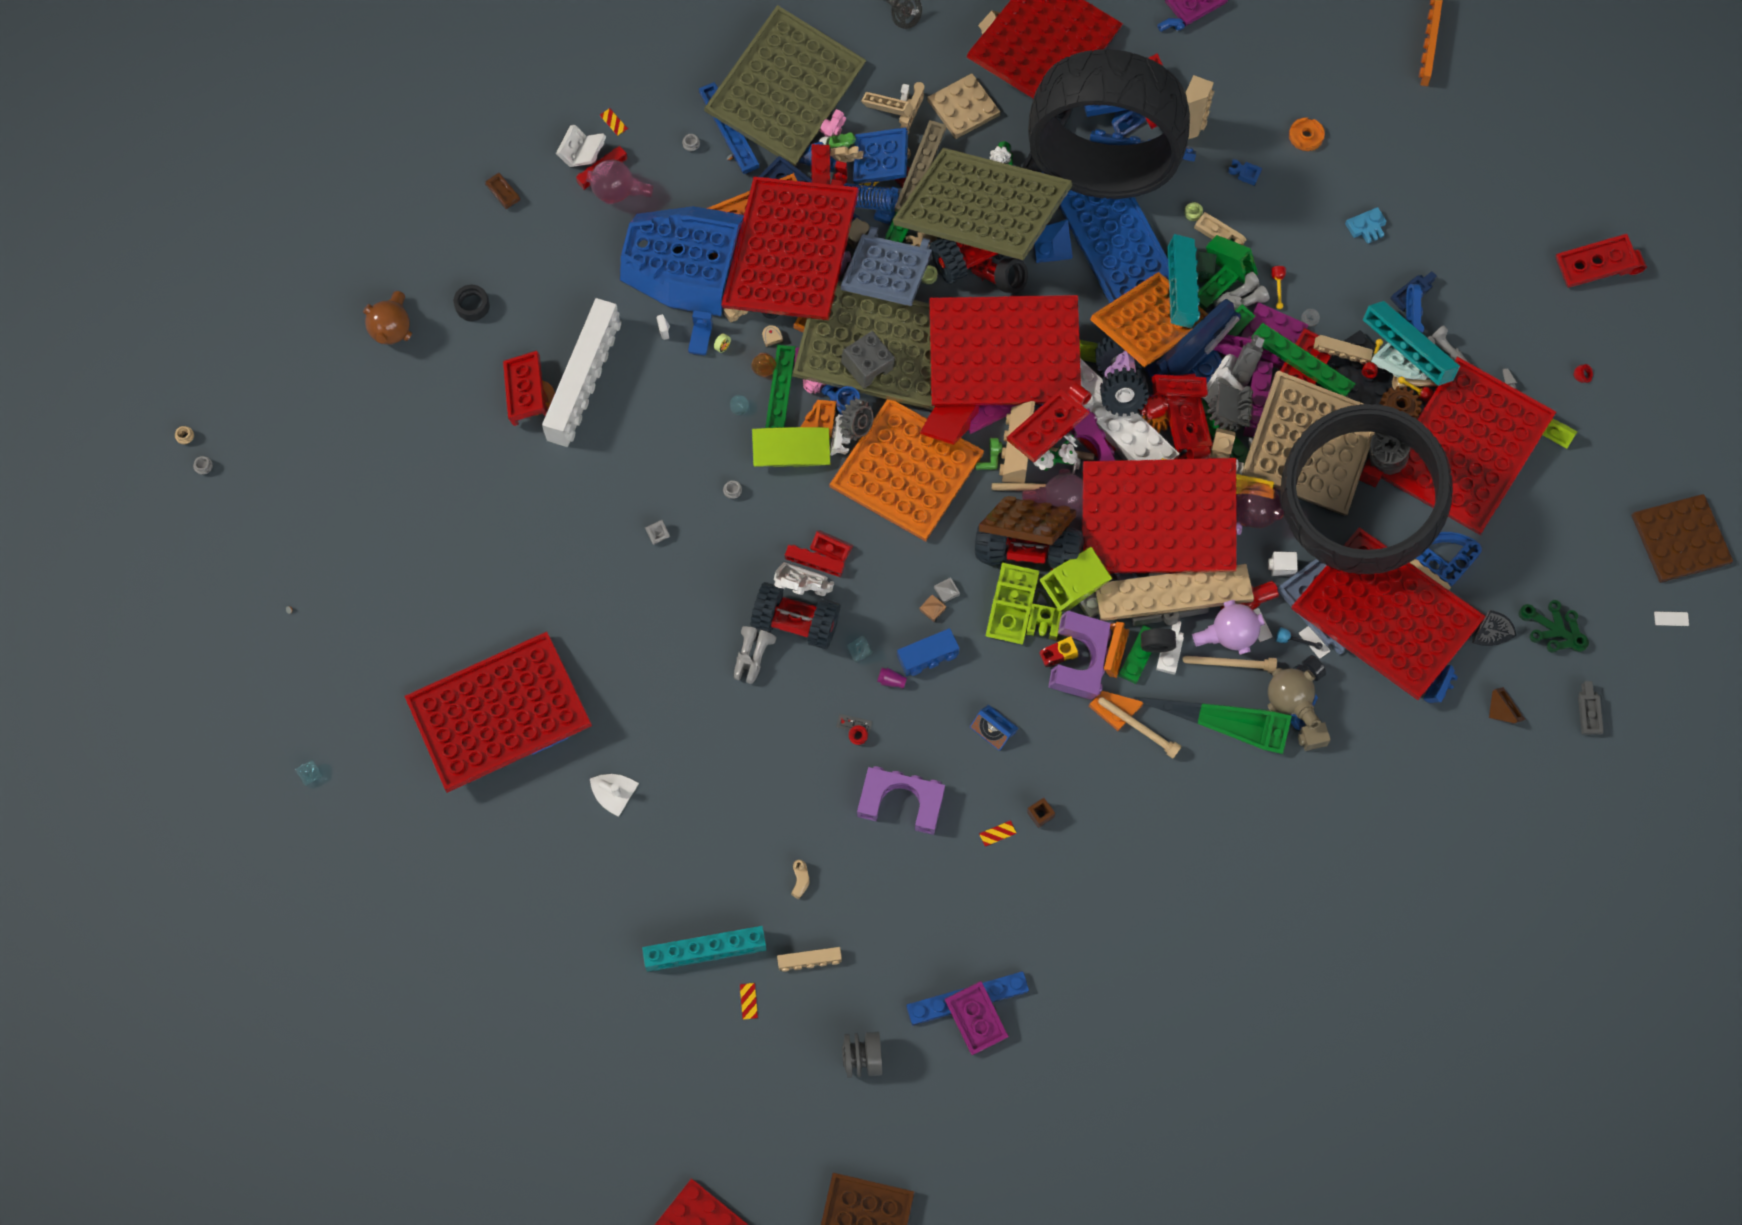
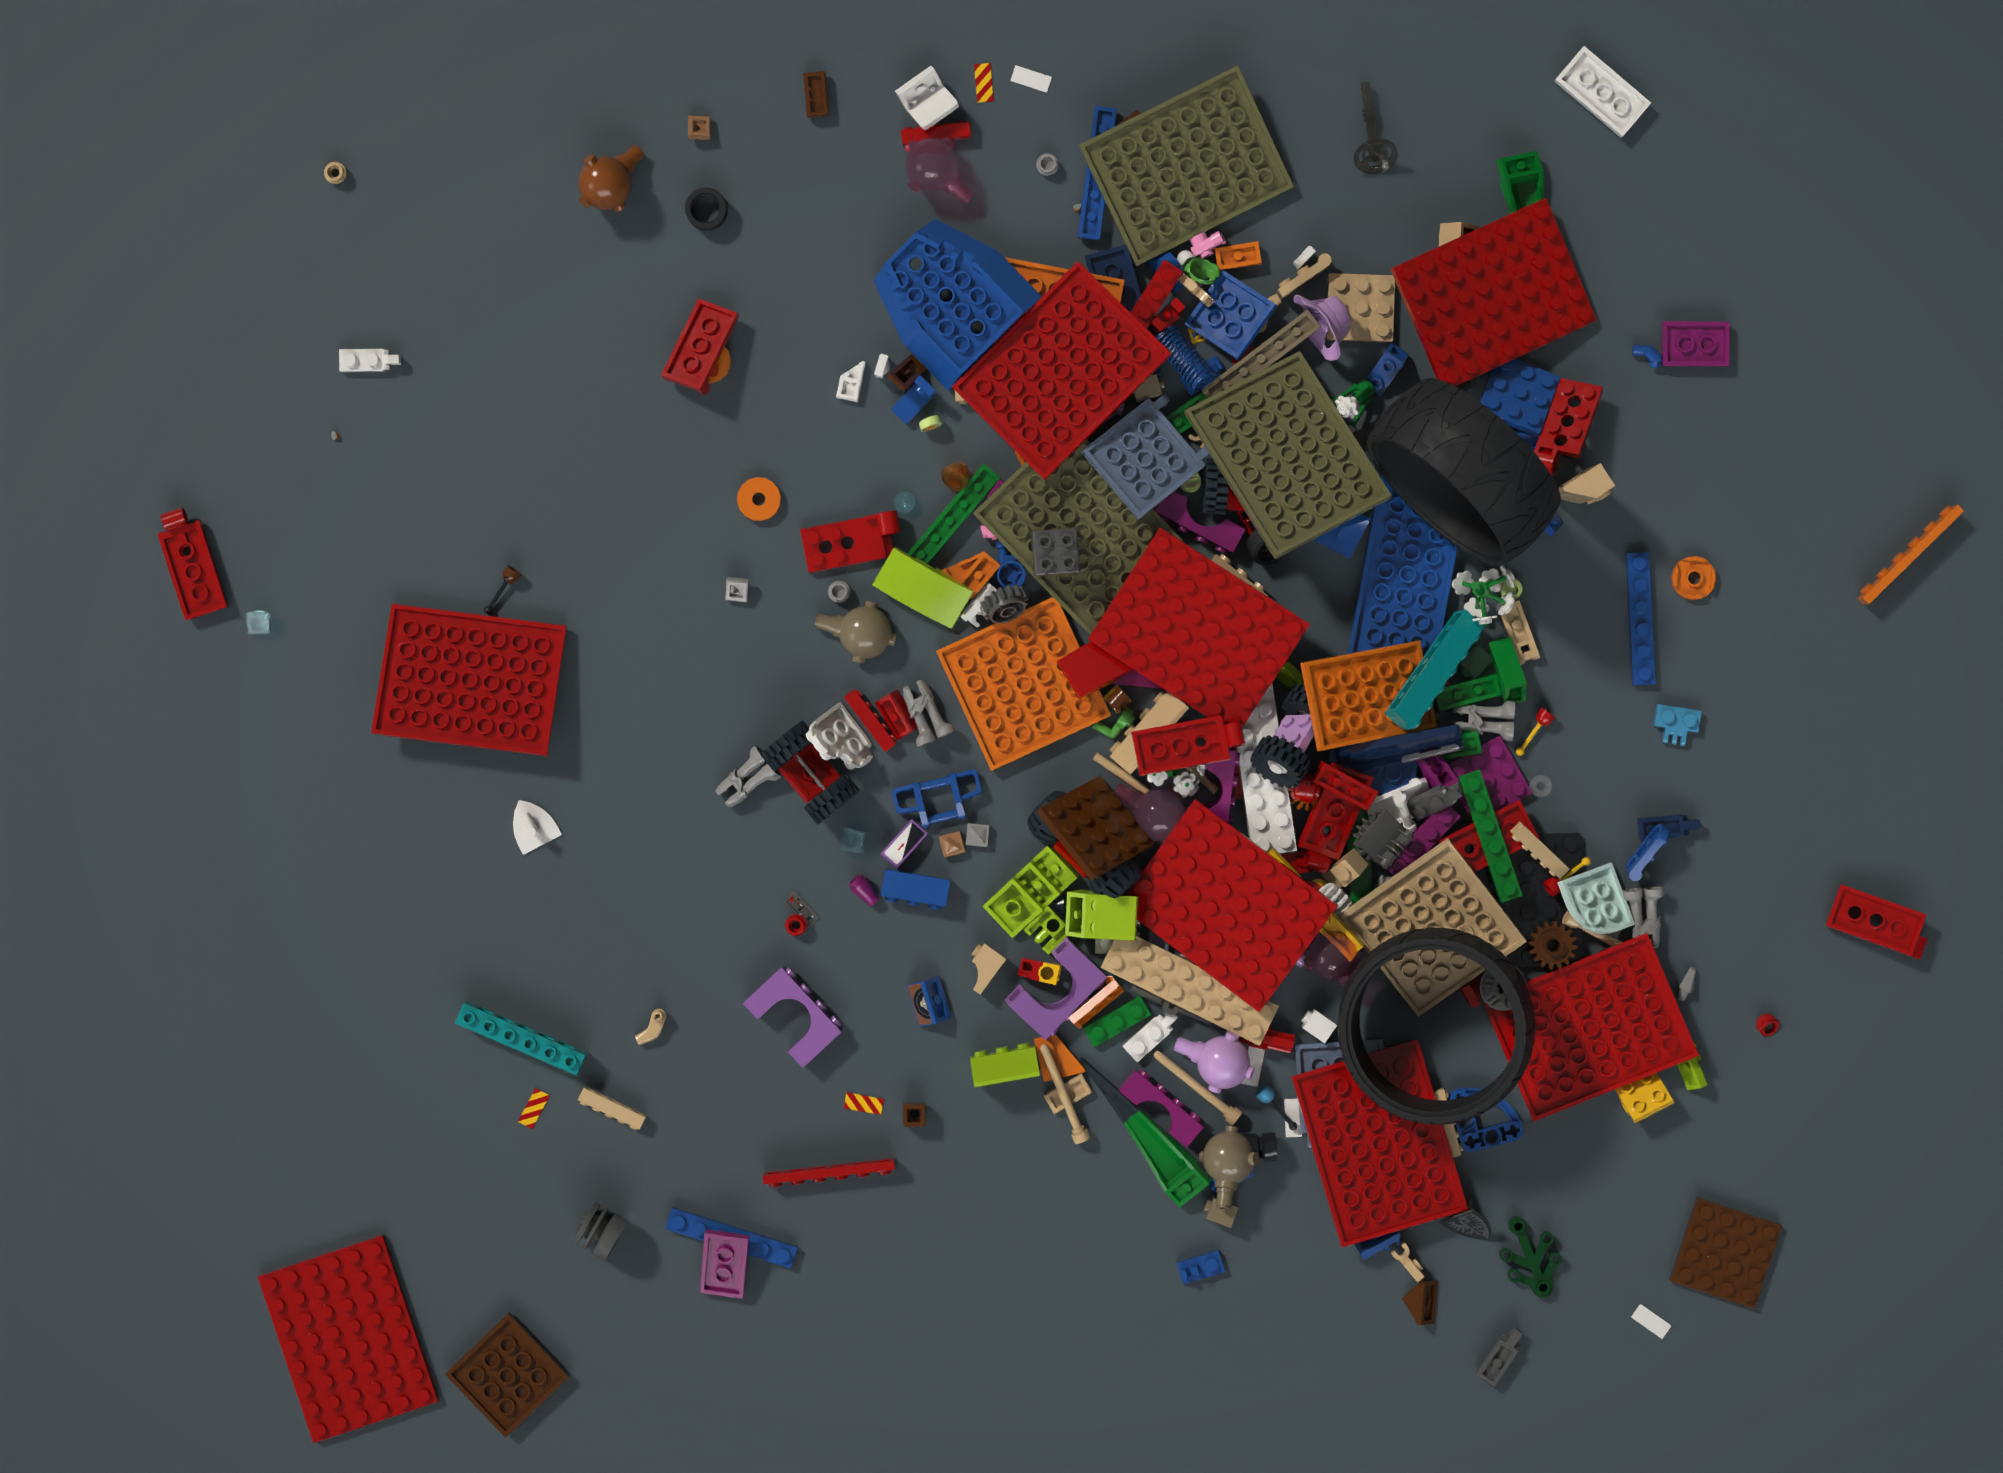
camera: 30 degrees right, 20 degrees up
(202, 465) = (335, 219): light grey plate -> none
(239, 768) = (192, 574): none -> red hinge
(284, 543) = (366, 360): none -> white hinge
(433, 256) = (699, 127): none -> medium nougat tile
(482, 624) = (510, 576): none -> hinge
(582, 373) = (766, 368): white brick -> none
(631, 454) = (747, 492): none -> orange tile
(644, 101) = (1031, 78): none -> white sticker
(648, 353) = (851, 382): none -> white tile
(683, 322) = (906, 373): none -> reddish brown slope
(729, 441) = (870, 537): none -> red hinge
(767, 504) = (862, 631): none -> dark tan piece
(771, 335) = (986, 446): tan tile -> none
(844, 522) = (916, 708): none -> light grey piece
(860, 120) = (1238, 256): none -> orange plate
(887, 104) = (1277, 259): tan piece -> none
(892, 594) = (919, 787): none -> blue bar
(898, 628) = (904, 843): none -> slope
(947, 108) = (1329, 314): none -> lavender piece
(976, 287) = (1224, 535): none -> magenta arch
(981, 435) = (1117, 699): none -> reddish brown leg
(1001, 903) = (838, 1171): none -> red plate
(1009, 129) = (1387, 368): none -> blue bracket
(1017, 671) = (987, 963): none -> tan arch
(1082, 733) = (1004, 1064): none -> lime slope
(1148, 719) = (1076, 1088): none -> tan tile
(1158, 640) = (1137, 1027): black tyre -> none
(1177, 215) = (1488, 582): none -> white plant
(1240, 692) = (1140, 1089): none -> magenta arch
(1247, 173) = (1598, 584): blue plate -> none
(1292, 178) = (1640, 618): none -> blue plate
(1329, 788) = (1200, 1266): none -> blue plate
(1411, 343) = (1612, 888): teal brick -> none
(1424, 393) = (1590, 943): hinge -> none
(1477, 687) = (1412, 1266): none -> tan plate
(1541, 467) = (1644, 1097): none -> yellow plate

